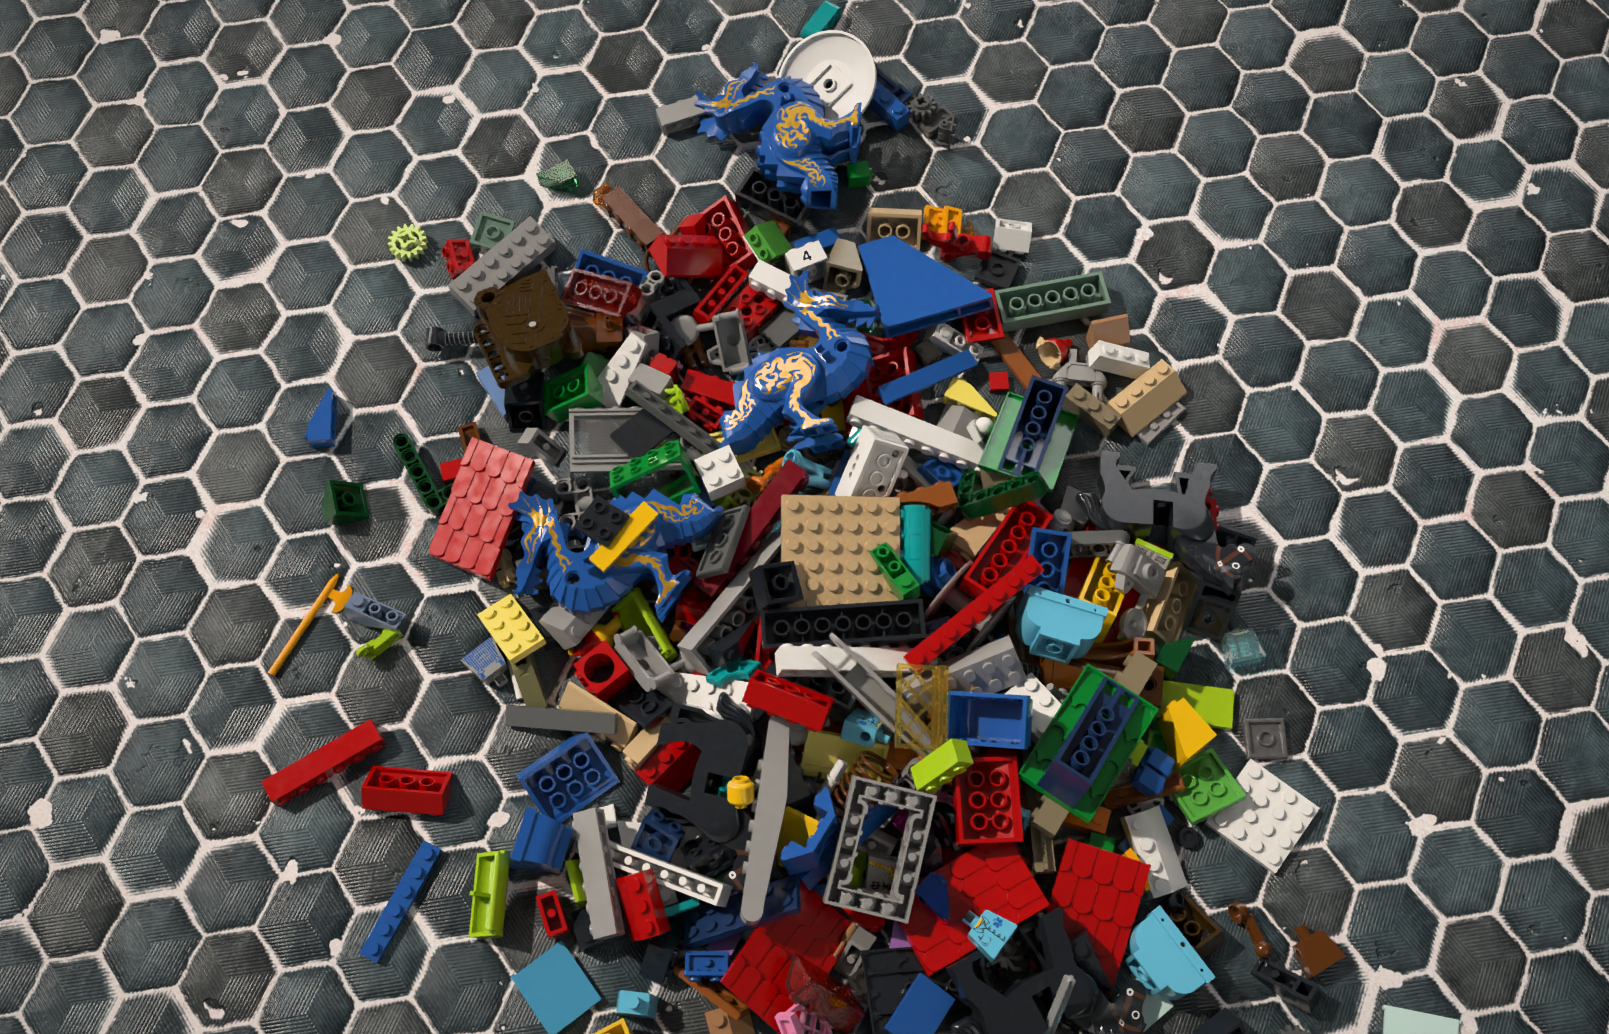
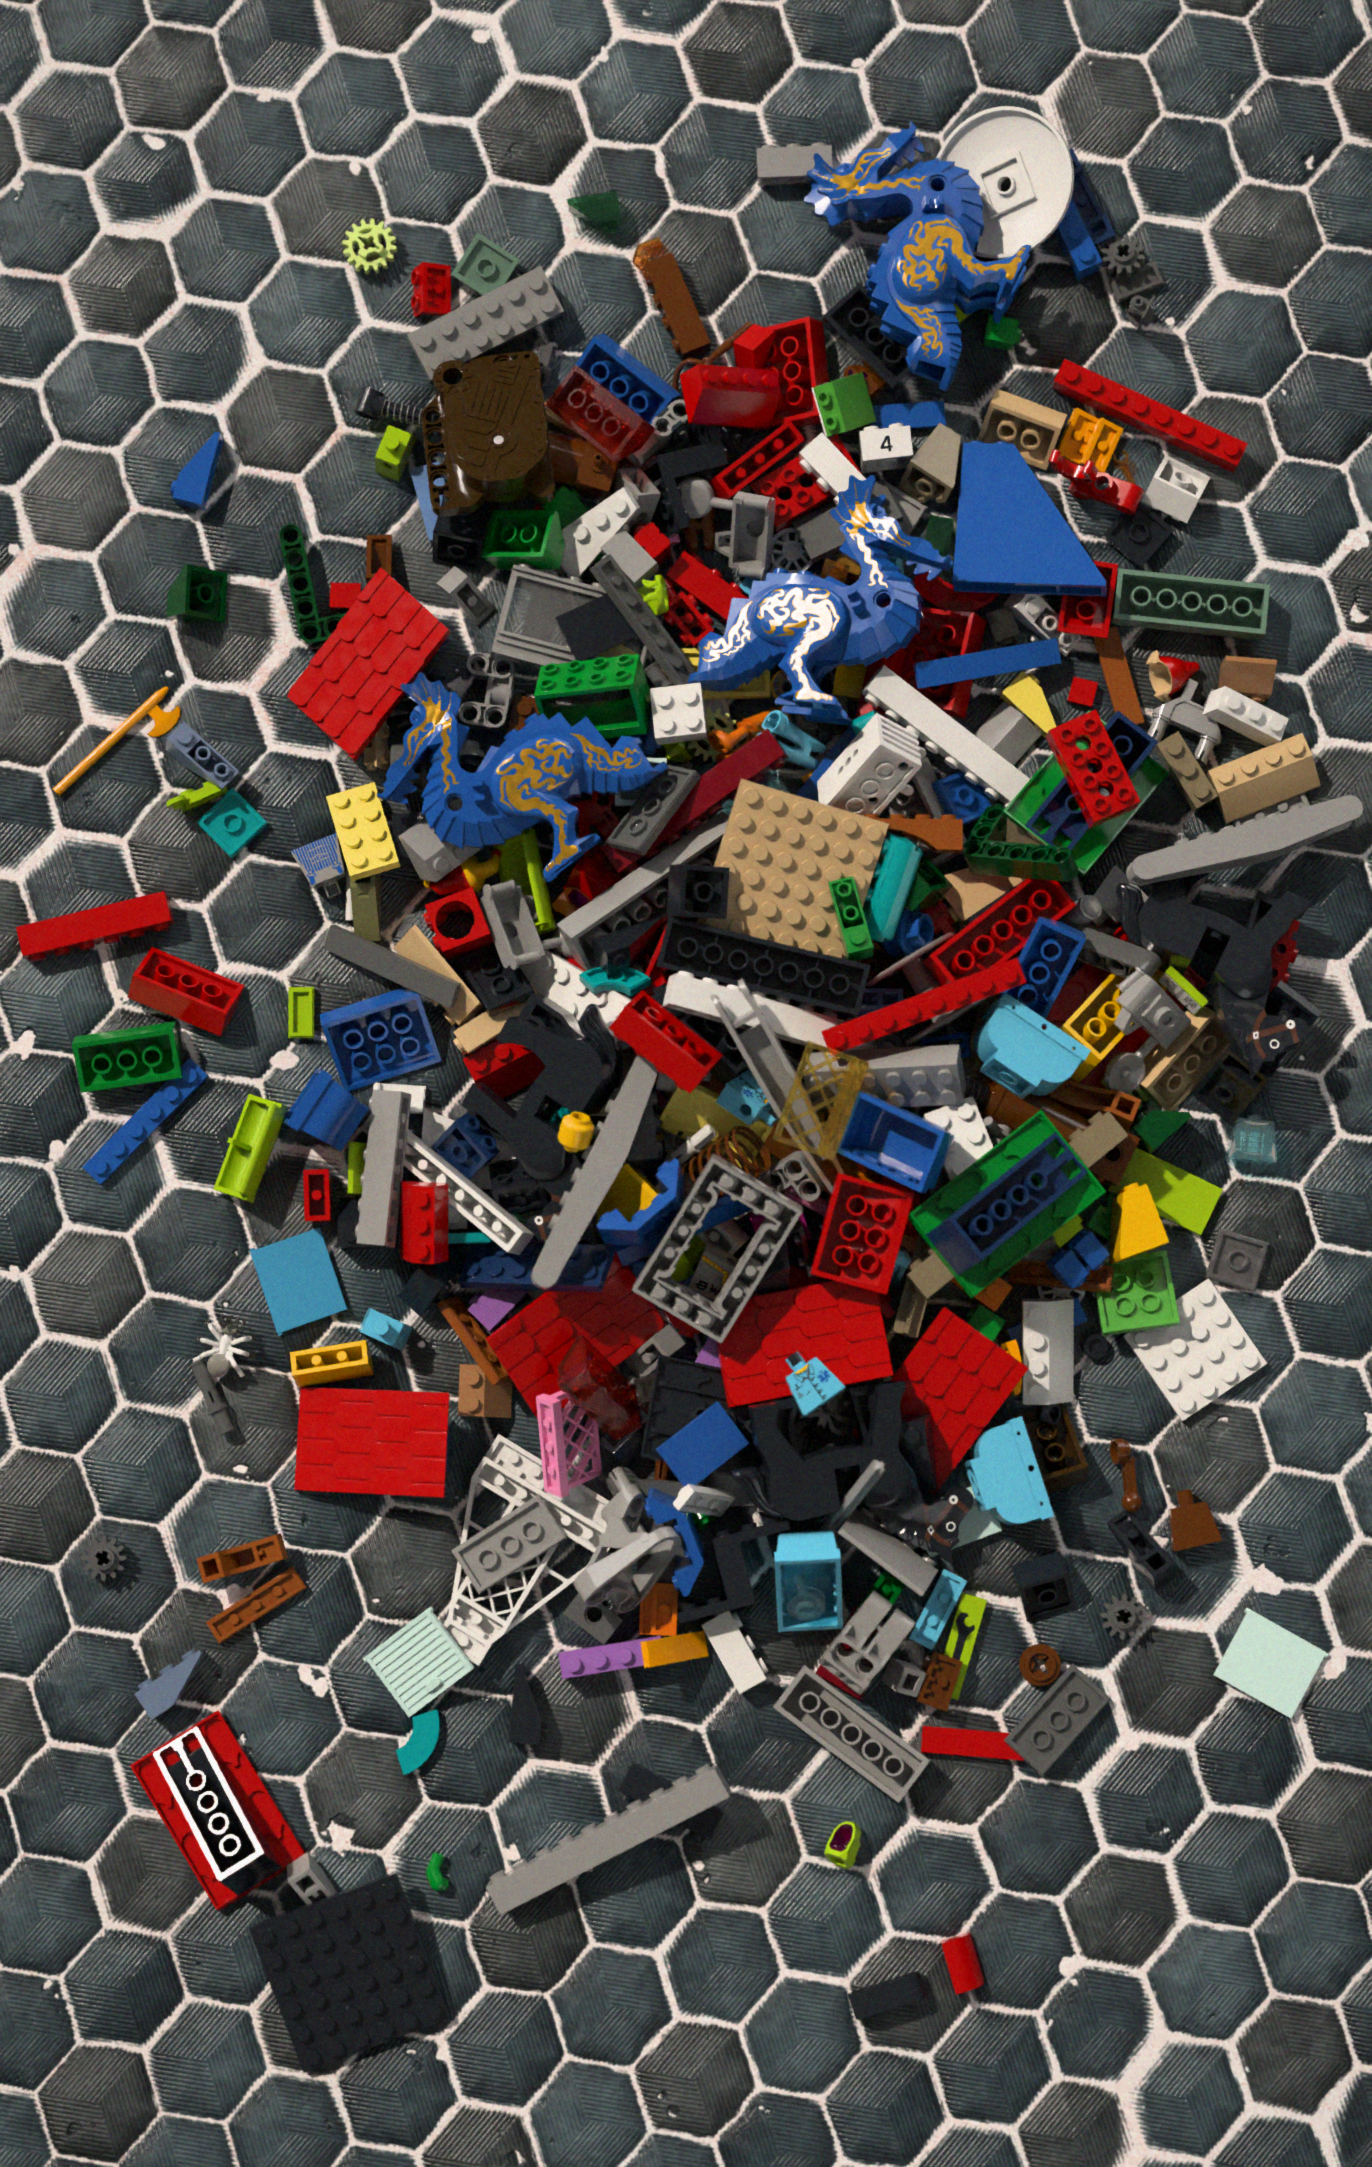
camera: 25 degrees right, 15 degrees up
(373, 854) = (127, 1057): none -> green slope
(411, 655) = (232, 822): none -> teal tile
(462, 361) = (395, 451): none -> lime torso
(502, 779) = (301, 1012): none -> lime tile
(601, 522) = (508, 747): black bracket -> none
(638, 522) = (530, 774): yellow tile -> none
(705, 965) = (477, 1312): blue bracket -> none
(822, 19) = (1029, 77): teal beam -> none
(845, 938) = (648, 1333): medium nougat piece -> none
(935, 895) = (764, 1323): clear blue slope -> none
(941, 765) = (821, 1177): lime brick -> none
(977, 195) = (1149, 415): none -> red brick
(980, 428) = (1028, 753): white tile -> none
(1031, 415) = (1099, 753): none -> red brick
(1155, 439) = (1247, 843): none -> light grey piece

